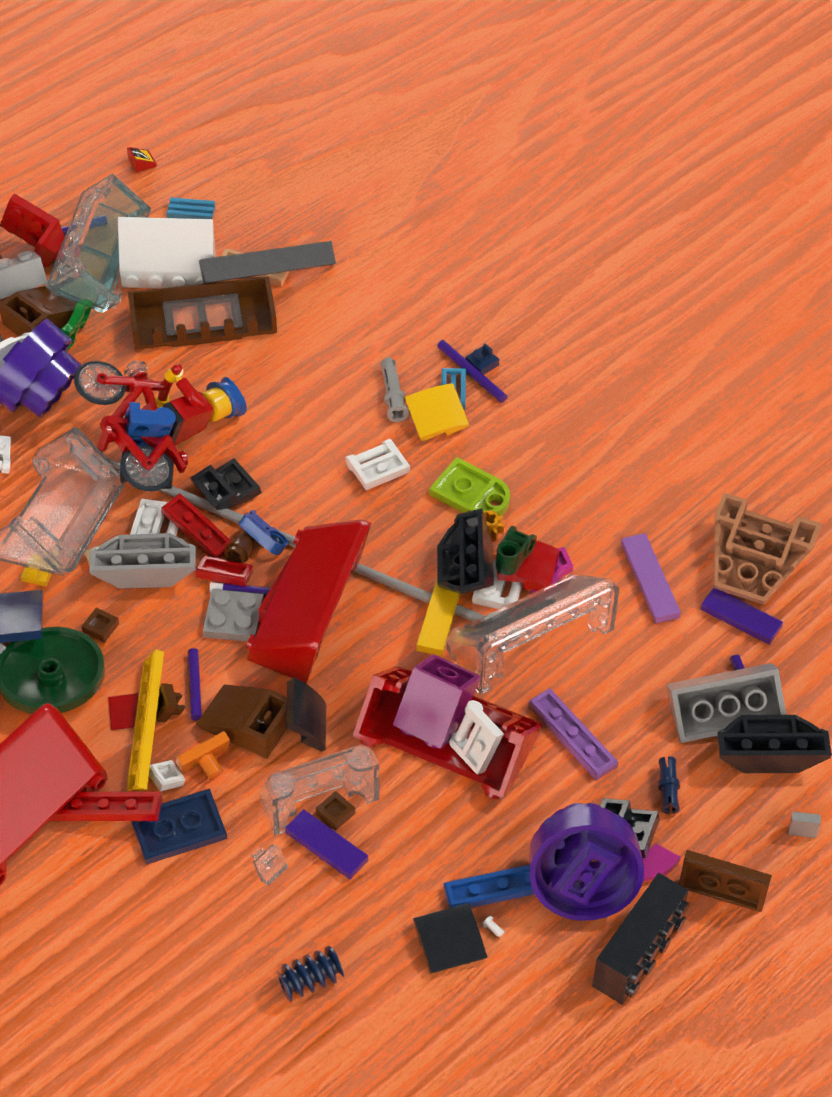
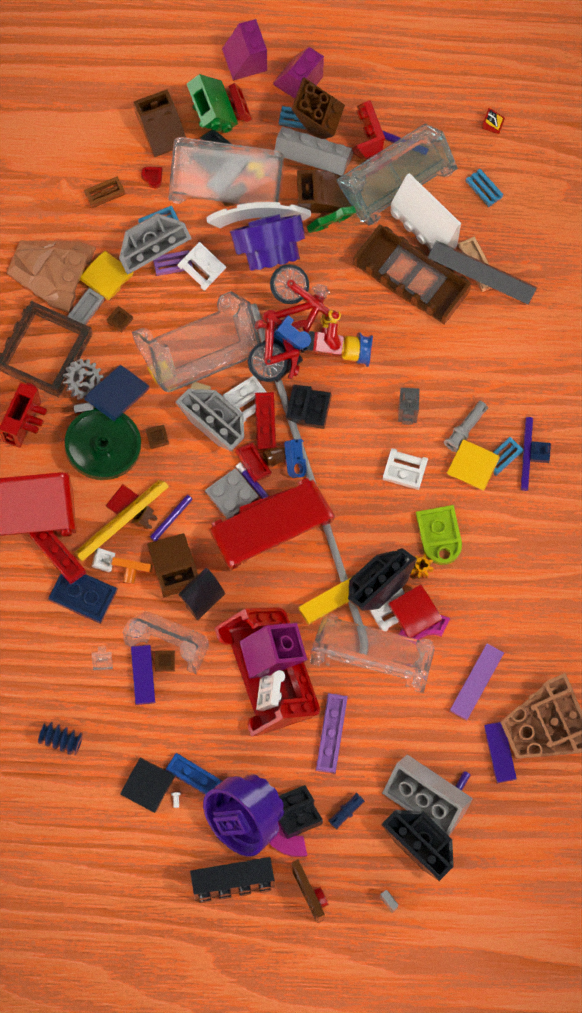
camera: 45 degrees right, 20 degrees up
(323, 405) = (408, 405): none -> dark grey hinge
(513, 550) = (412, 597): dark green piece -> none

